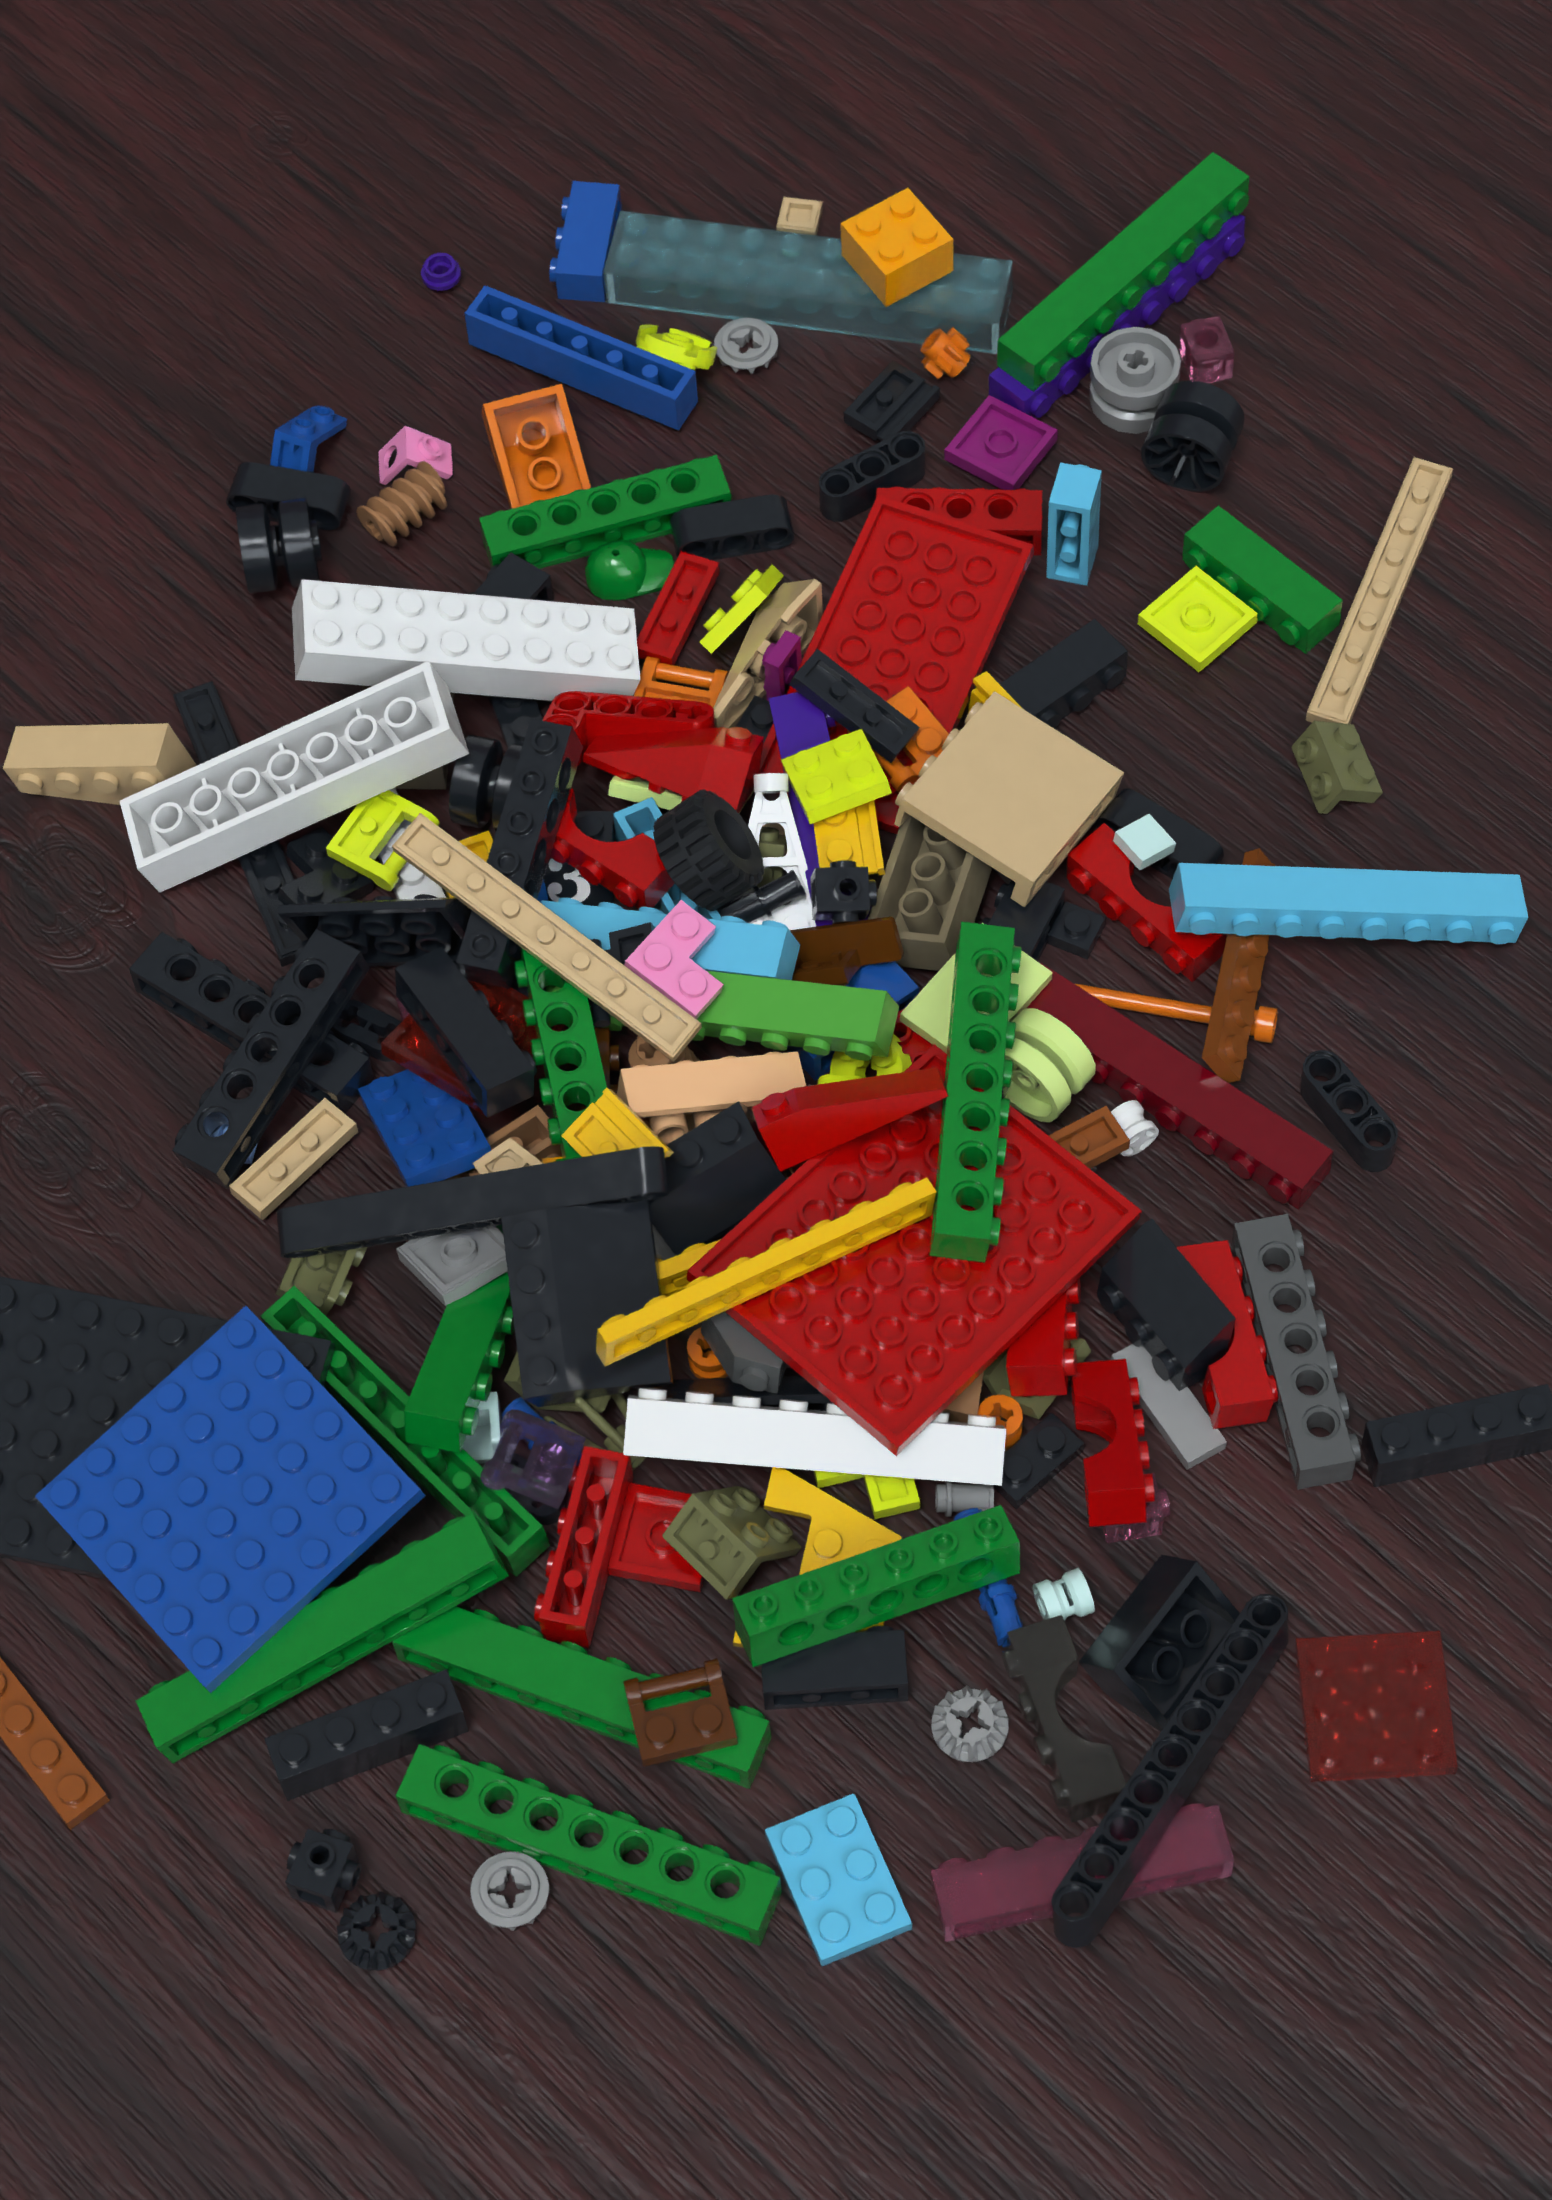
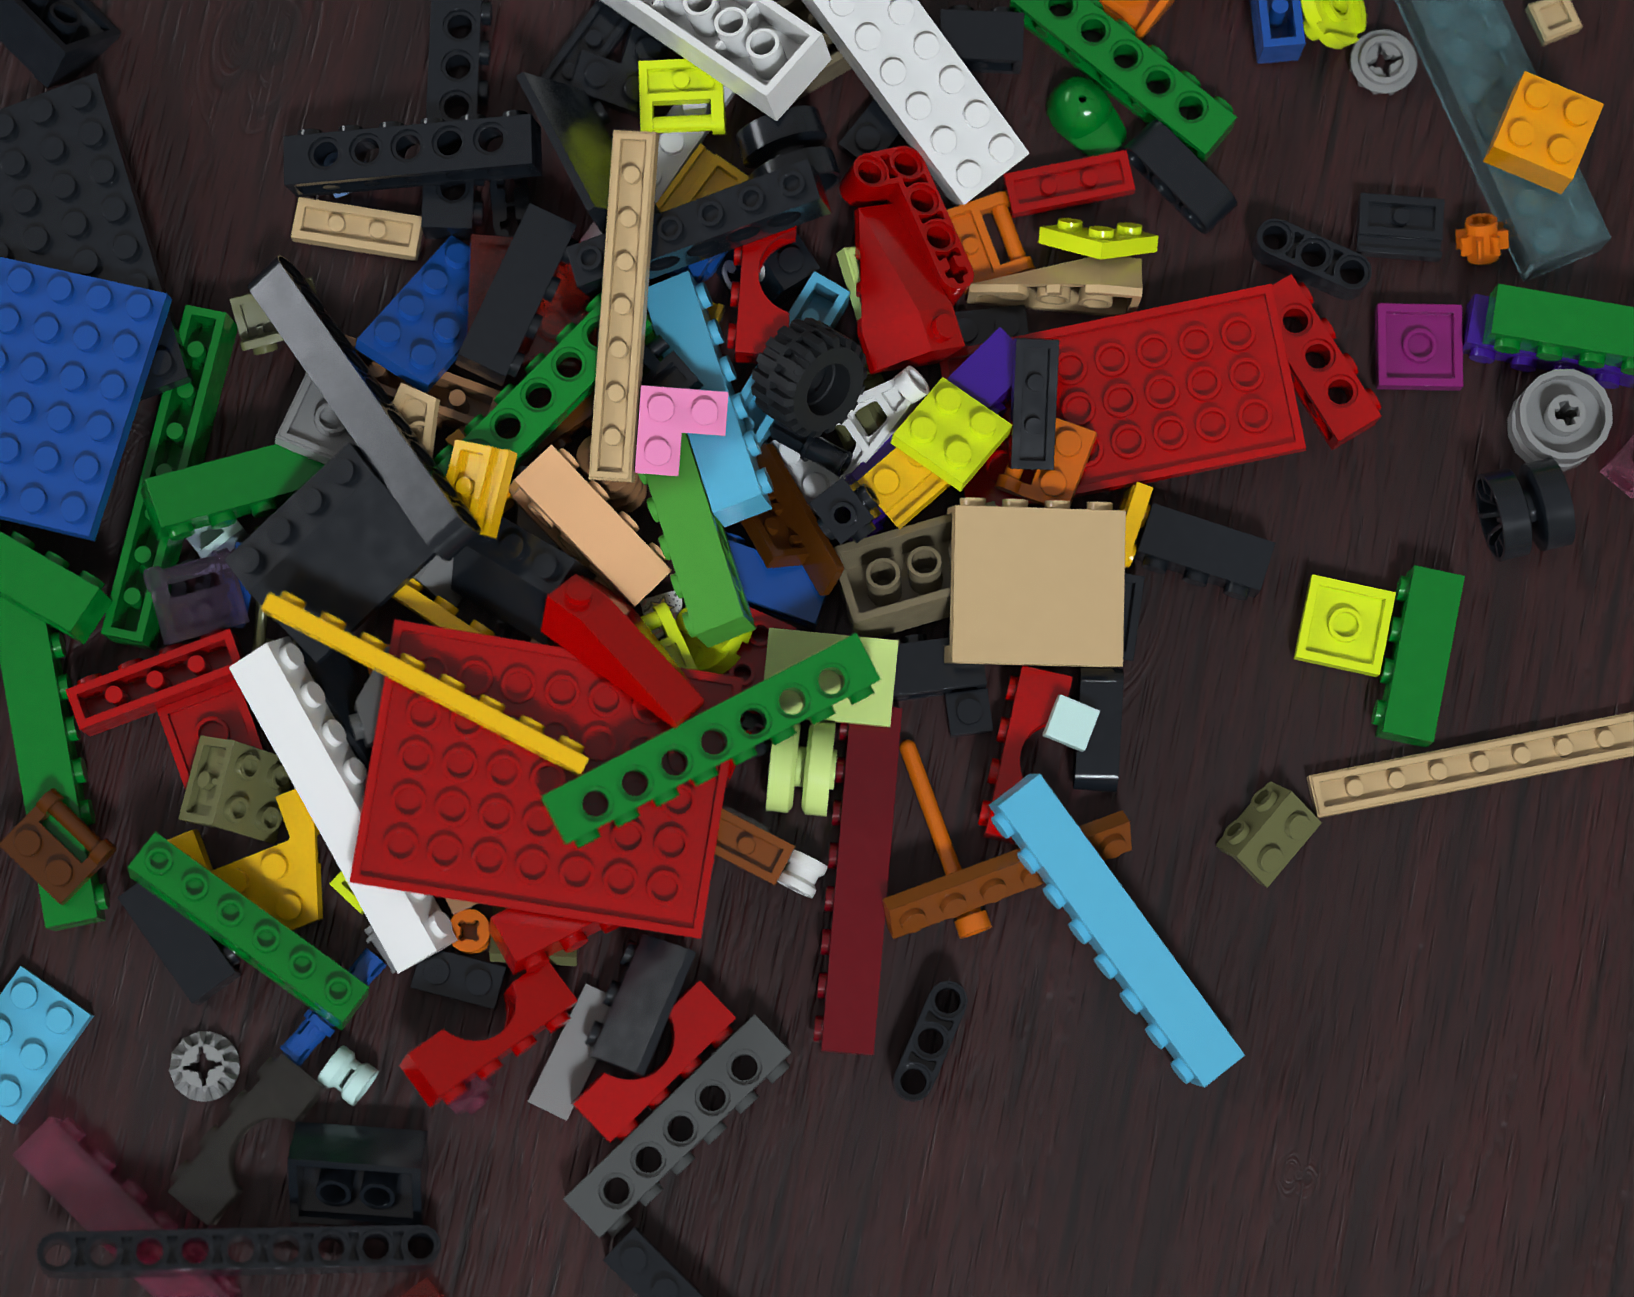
camera: 50 degrees right, 20 degrees up
(781, 664) = (1050, 312): magenta plate -> none
(1073, 523) = (1354, 466): medium azure brick -> none

